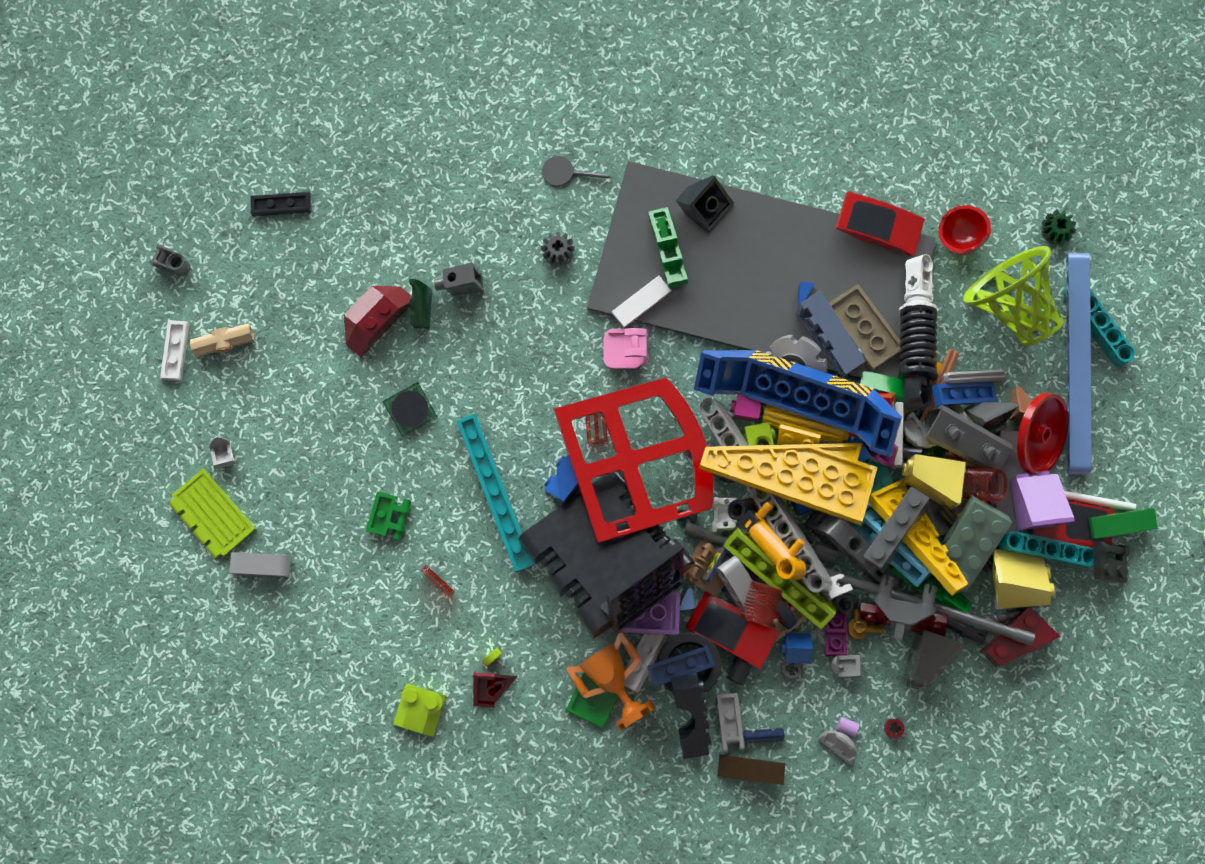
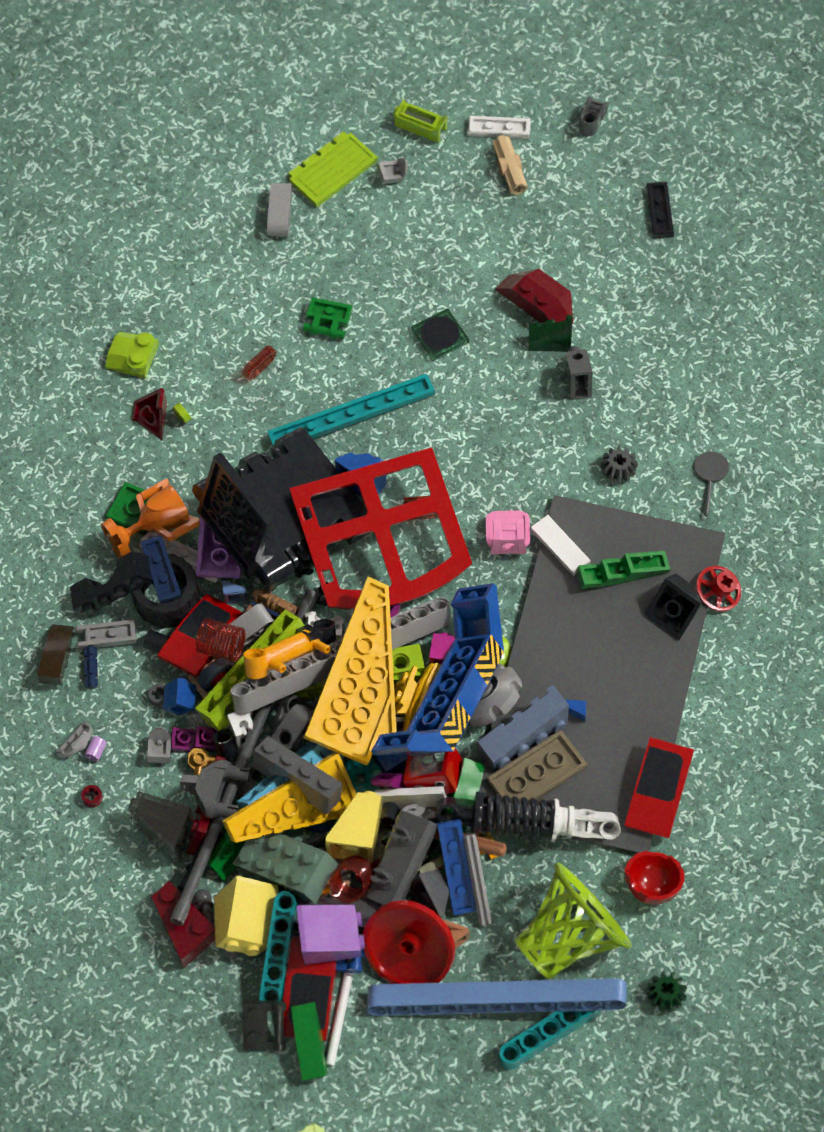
camera: 90 degrees right, 15 degrees down
(164, 426) = (419, 121): none -> lime window
(683, 165) = (720, 586): none -> red wheel

